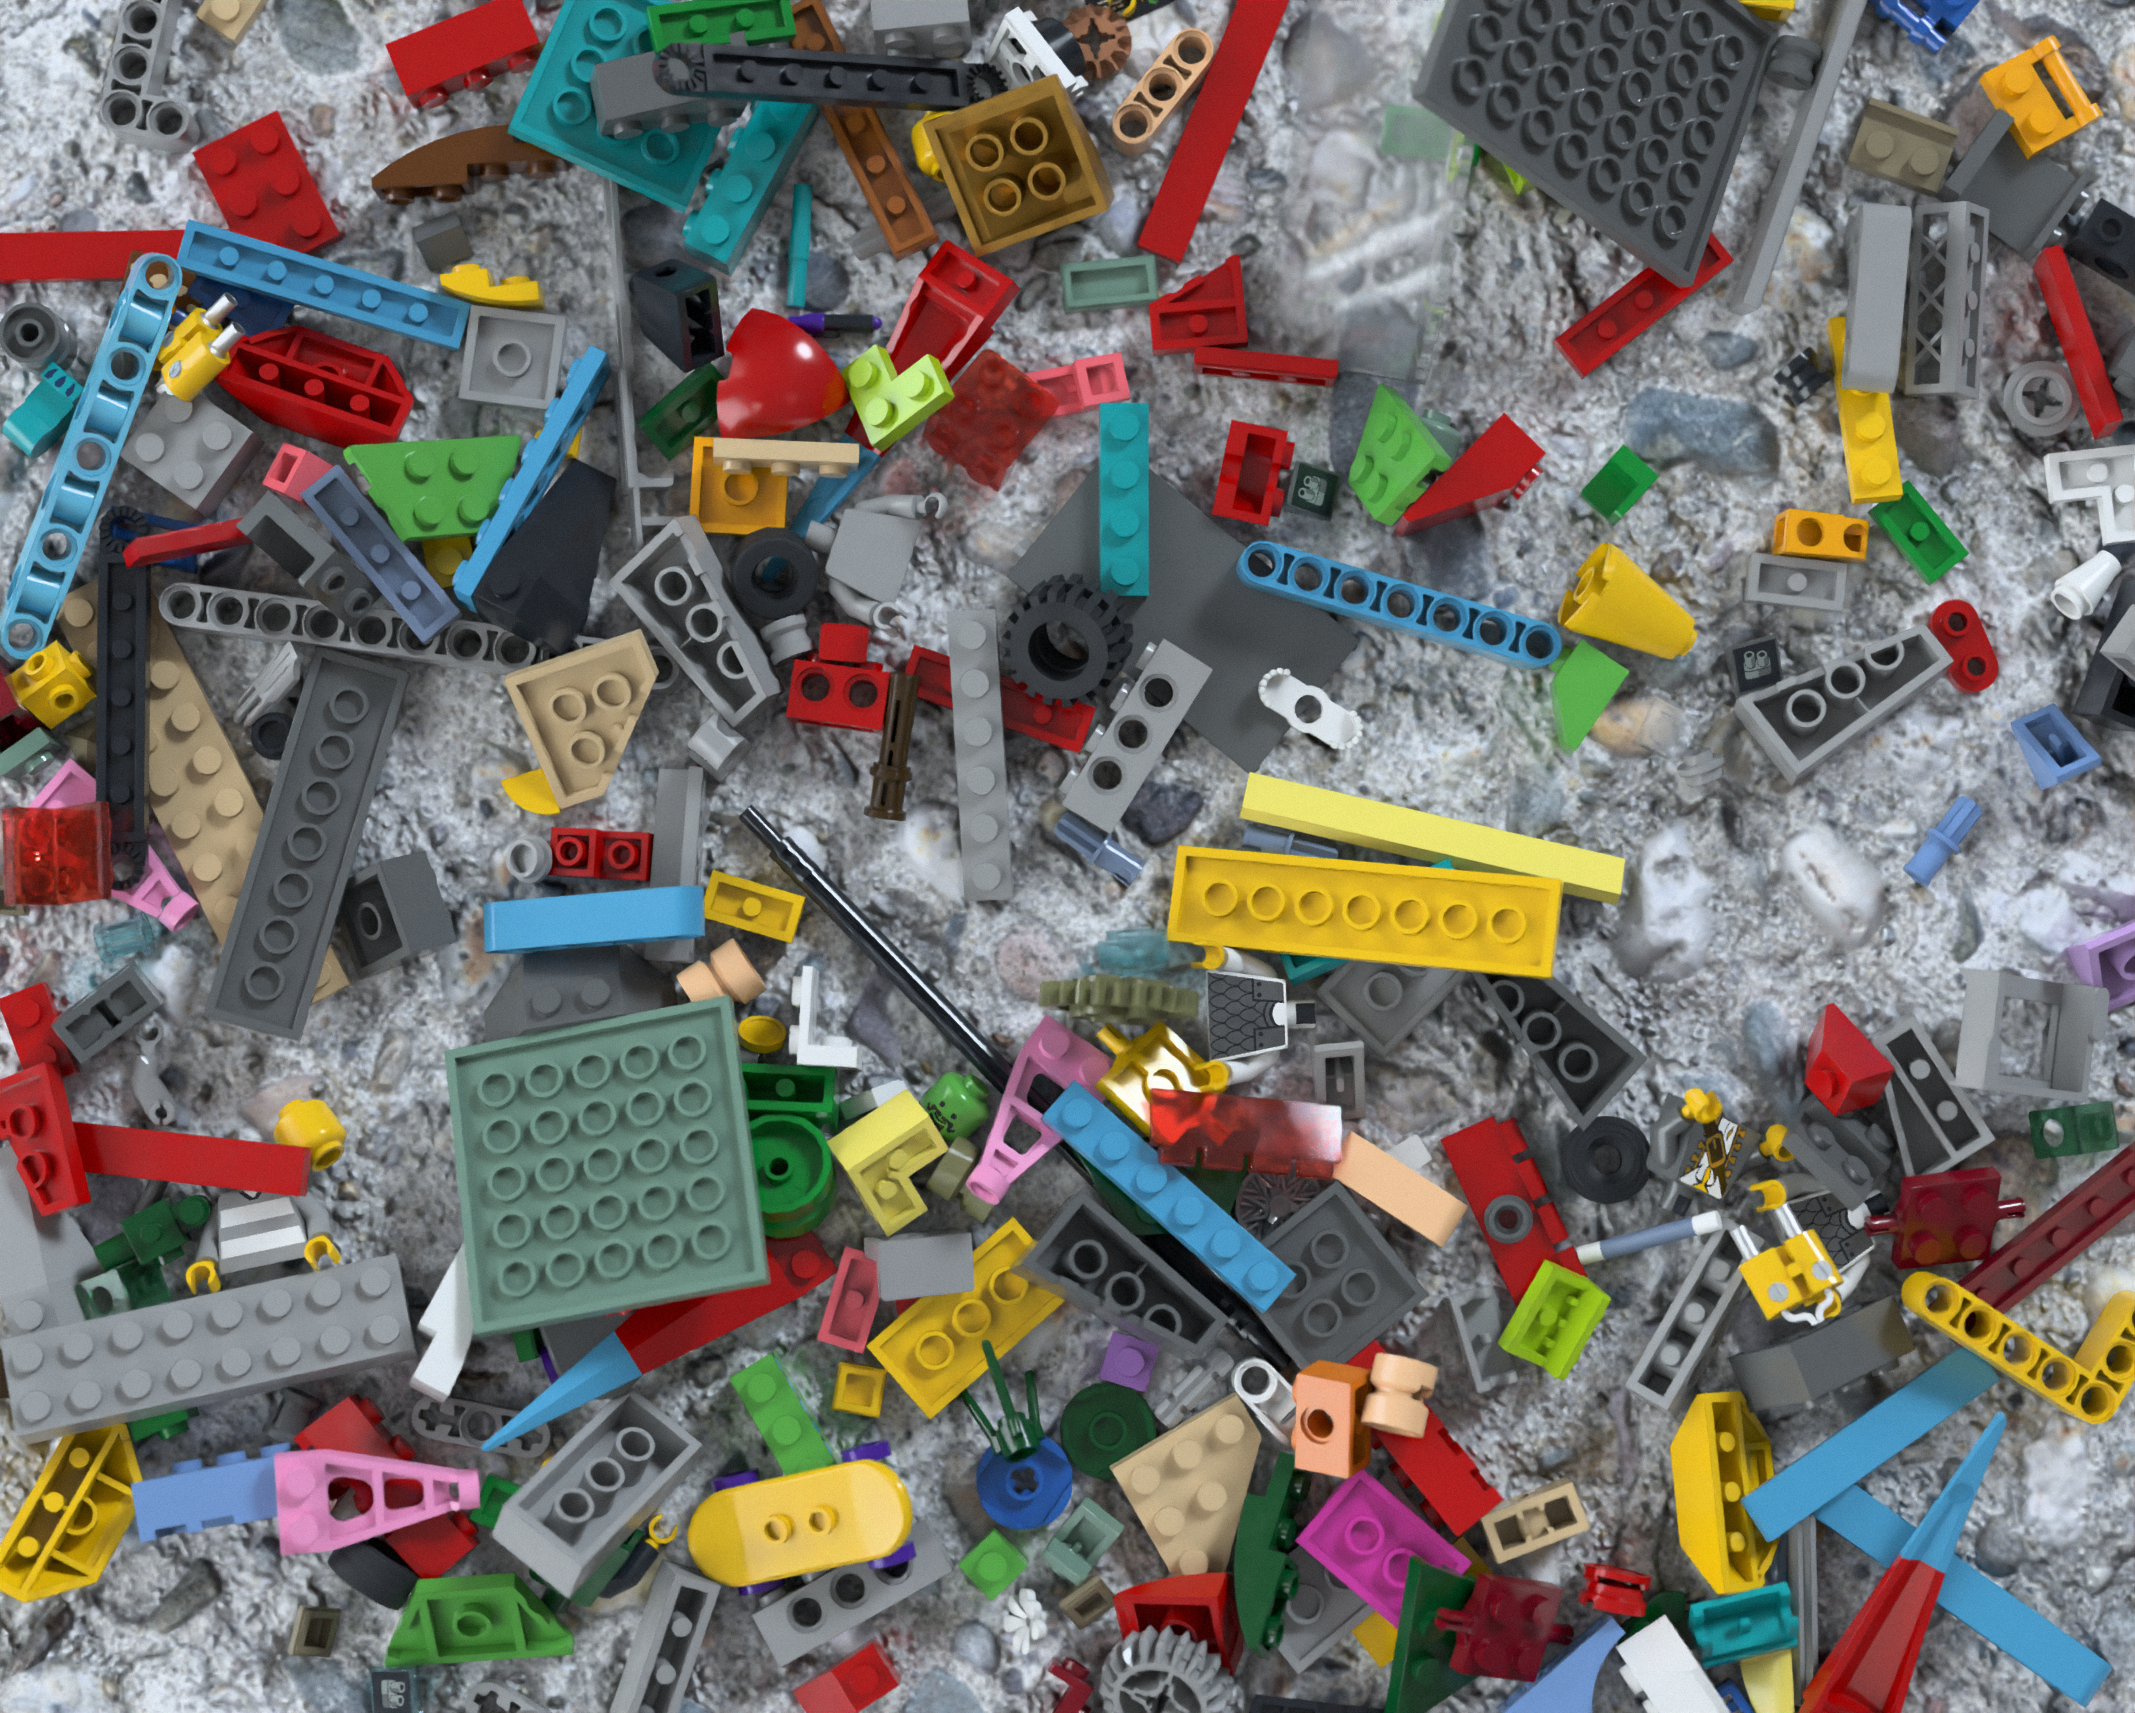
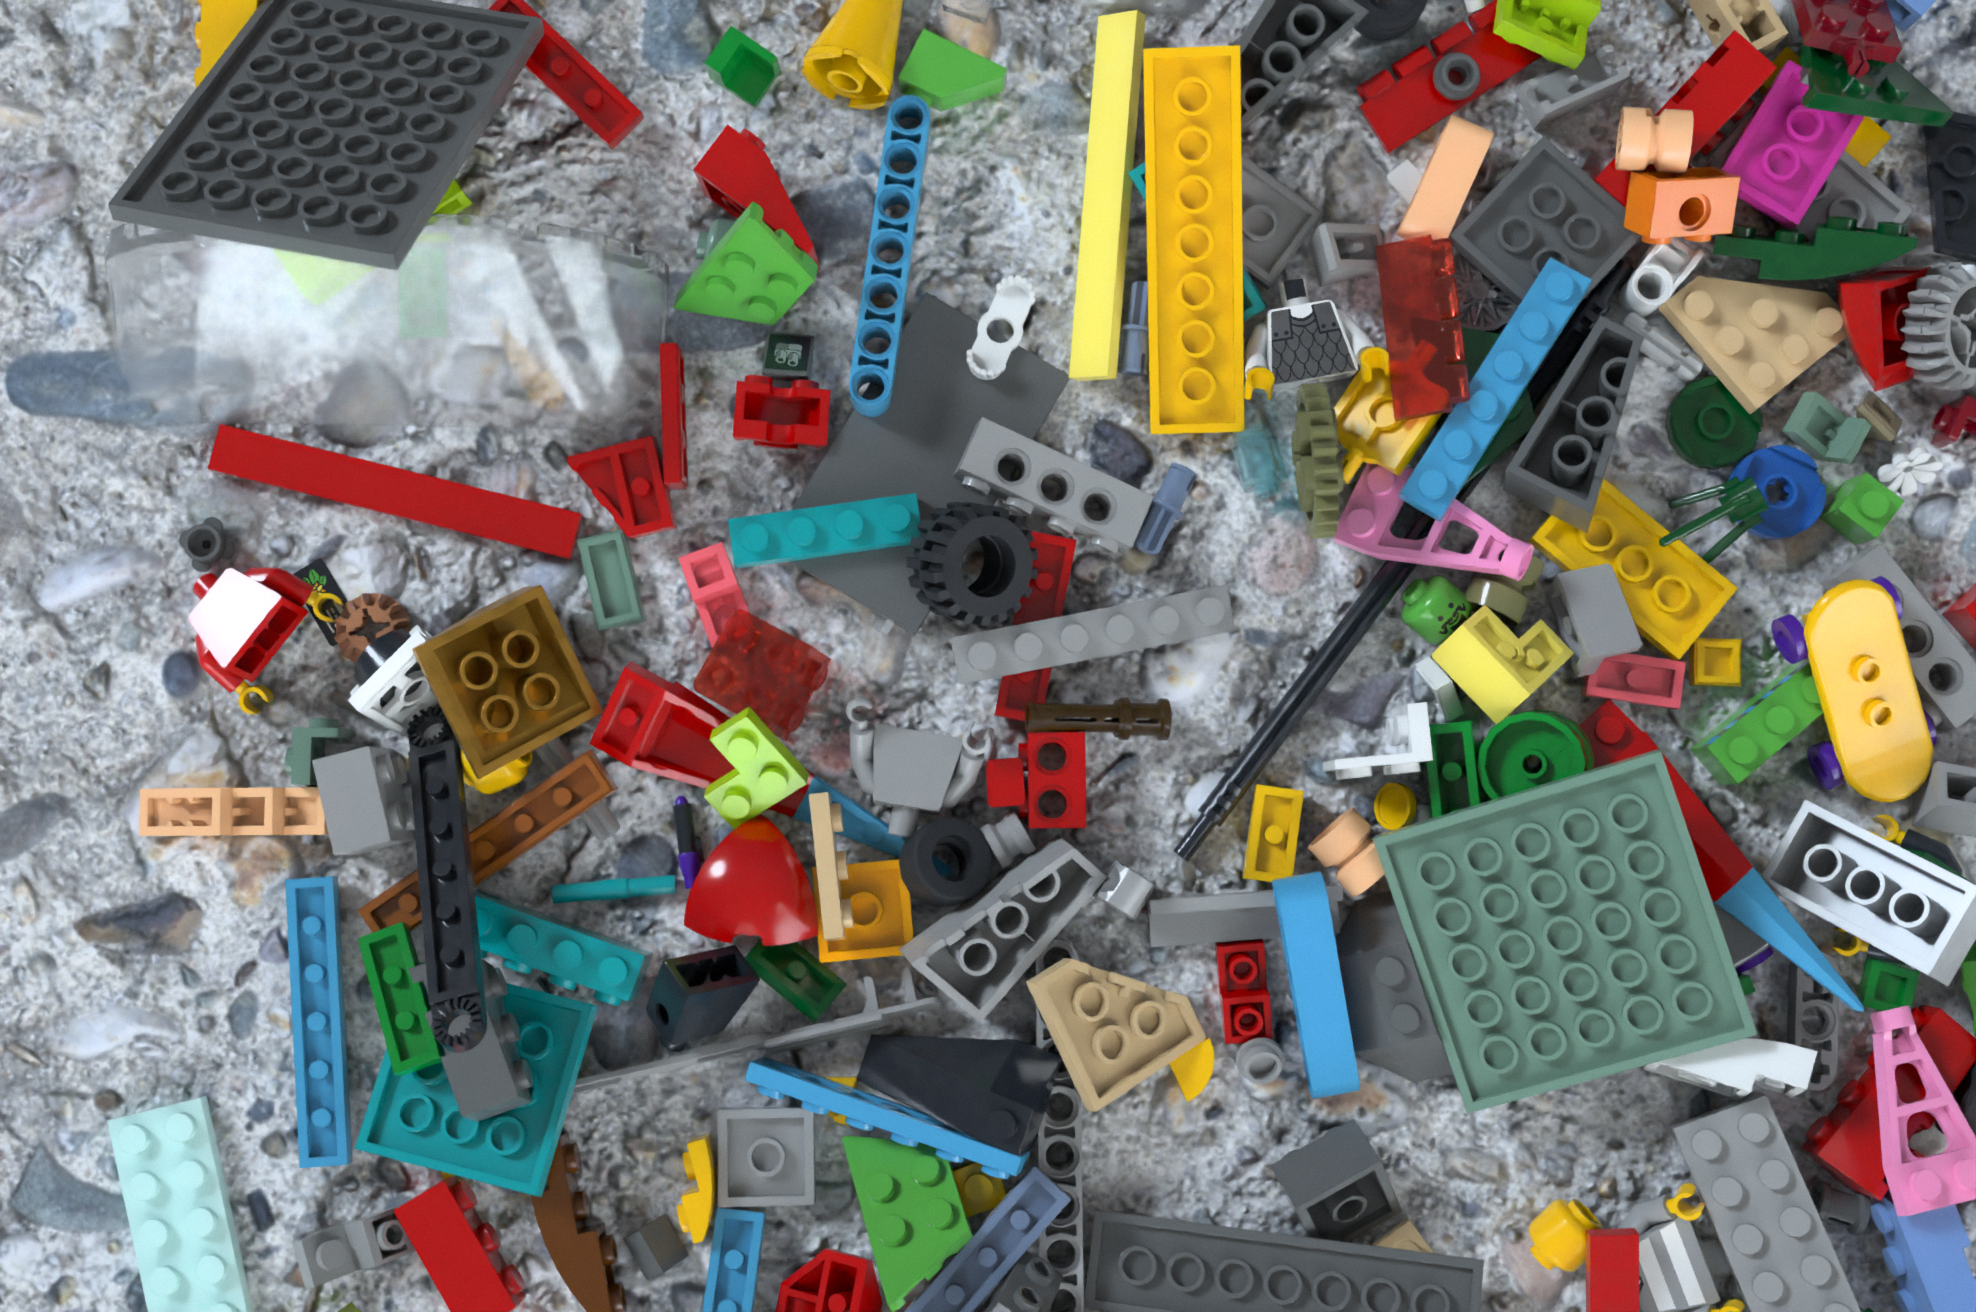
camera: 100 degrees left, 0 degrees up
(1128, 1361) = (1647, 412): medium lavender plate -> none
(1167, 70) = (393, 548): light nougat beam -> none

